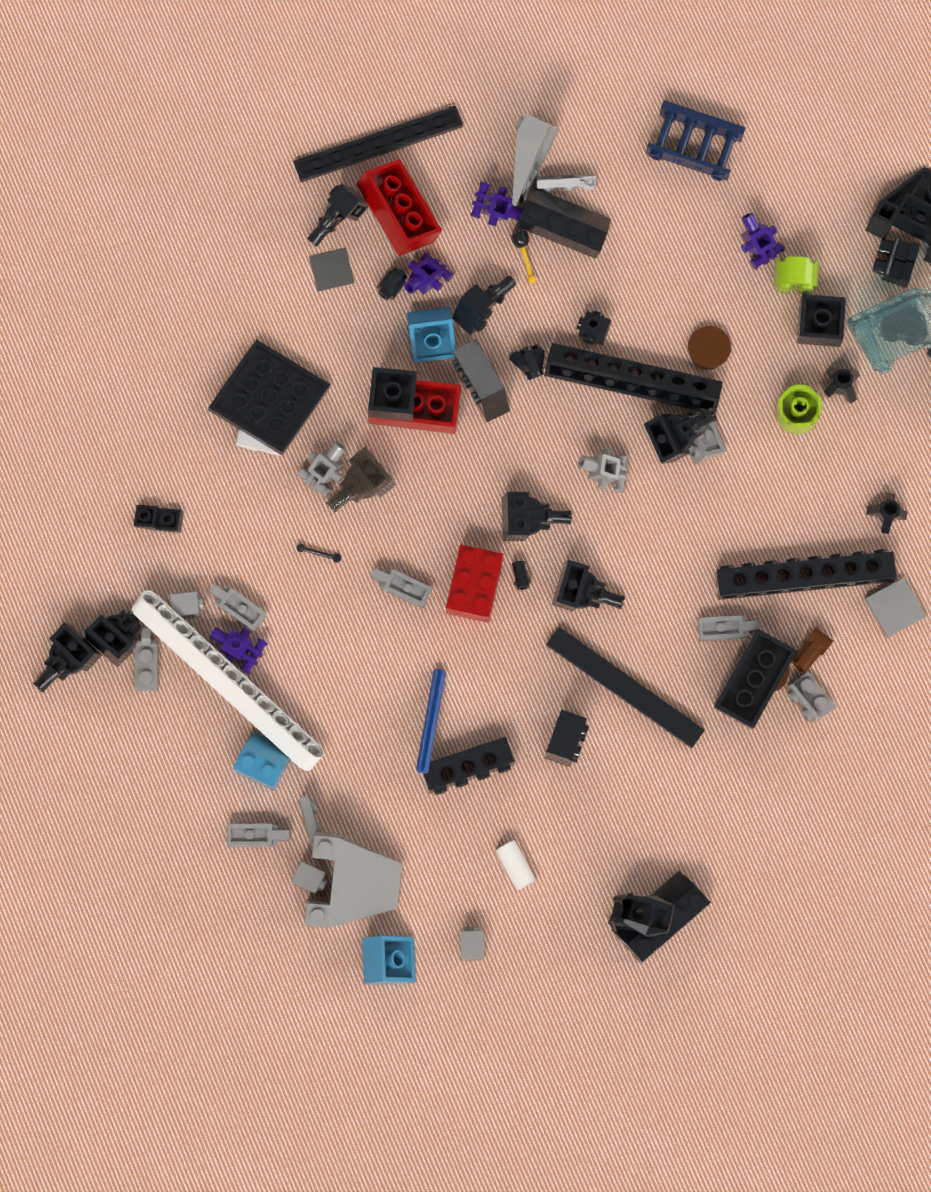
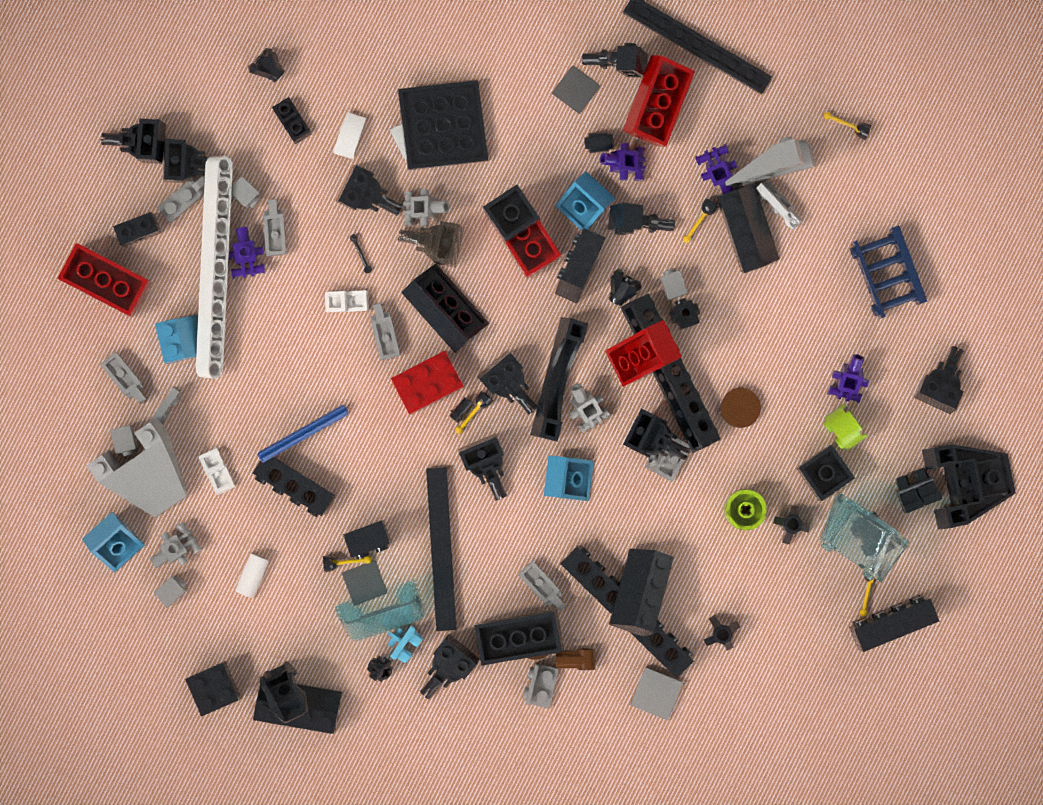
camera: 45 degrees right, 10 degrees up
(96, 500) = (267, 65): none -> black rock
(139, 720) = (137, 229): none -> black brick
(159, 782) = (104, 280): none -> red brick
(212, 481) = (349, 135): none -> white slope
(270, 506) = (362, 191): none -> black brick
(349, 596) = (347, 301): none -> white slope
(401, 822) = (216, 471): none -> white slope
(423, 519) = (445, 307): none -> black slope
(438, 911) = (175, 548): none -> light grey piece
(528, 551) = (482, 401): none -> hinge
(535, 438) = (568, 339): none -> black arch
(560, 70) = (861, 130): none -> hinge
(560, 790) = (330, 562): none -> hinge
(561, 318) = (673, 284): none -> light grey brick
(586, 976) = (213, 688): none -> black brick
(599, 381) = (643, 353): none -> red brick
(600, 776) = (364, 583): none -> dark grey sticker
(635, 805) = (407, 611): none -> clear light blue windscreen
(652, 533) = (568, 478): none -> dark azure slope
(678, 772) = (400, 652): none -> medium azure hips
(685, 820) = (379, 668): none -> black gear
(730, 755) = (452, 663): none -> black brick
(799, 545) = (641, 591): none -> black slope
(825, 171) = (940, 386): none -> black brick

